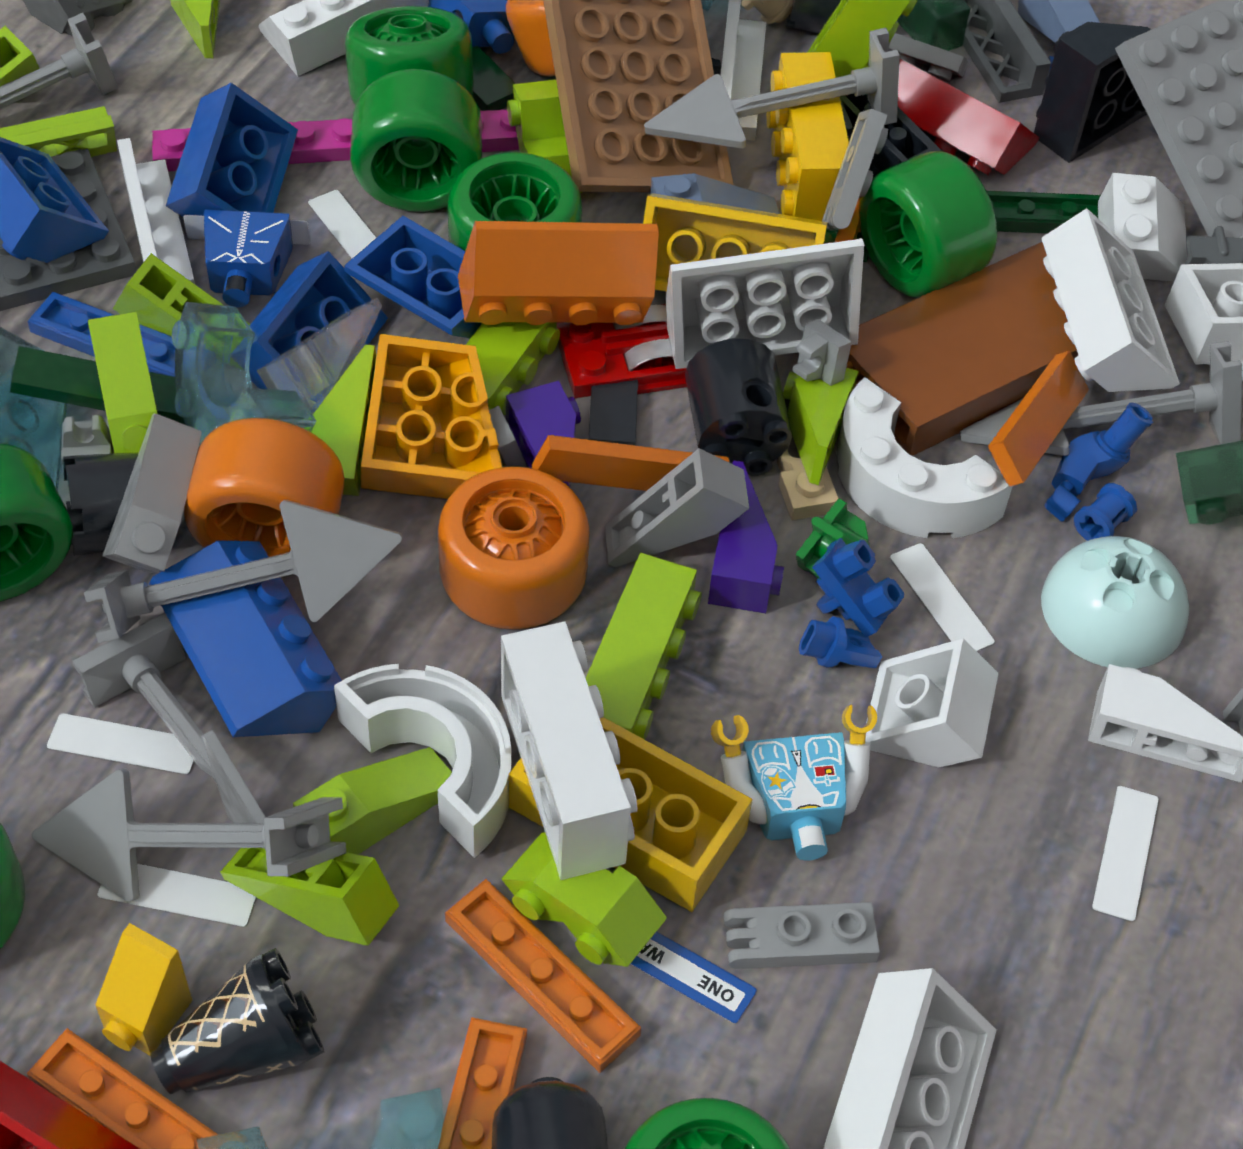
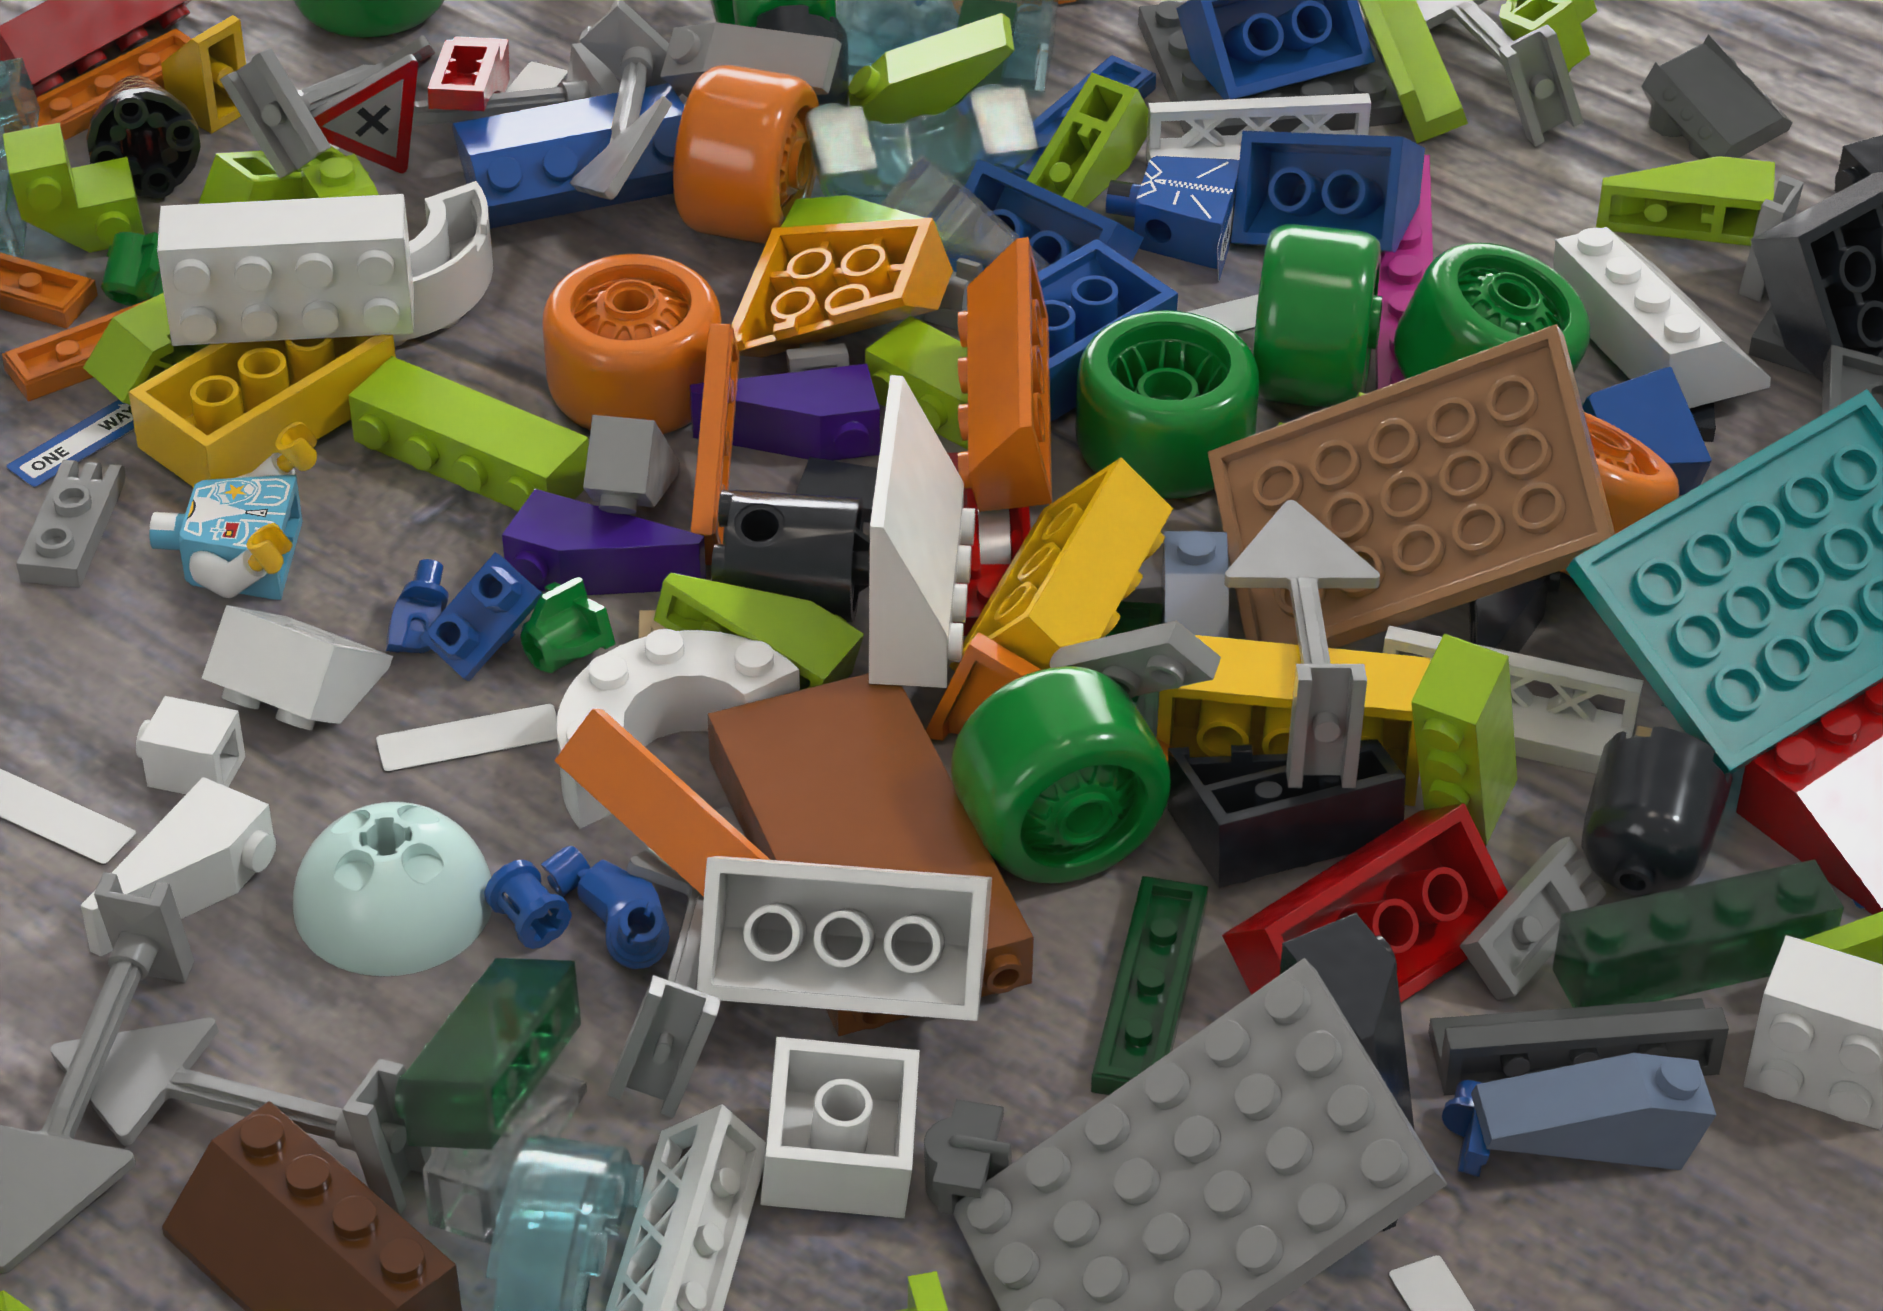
camera: 105 degrees right, 10 degrees down
(147, 737) = (469, 73): none -> slope
(375, 1048) = (76, 203): none -> lime brick
(461, 972) = (132, 268): none -> green piece
(822, 353) = (831, 610): light grey tile -> none
(1046, 752) = (190, 743): none -> white brick
(1147, 221) = (1046, 1061): white slope -> none

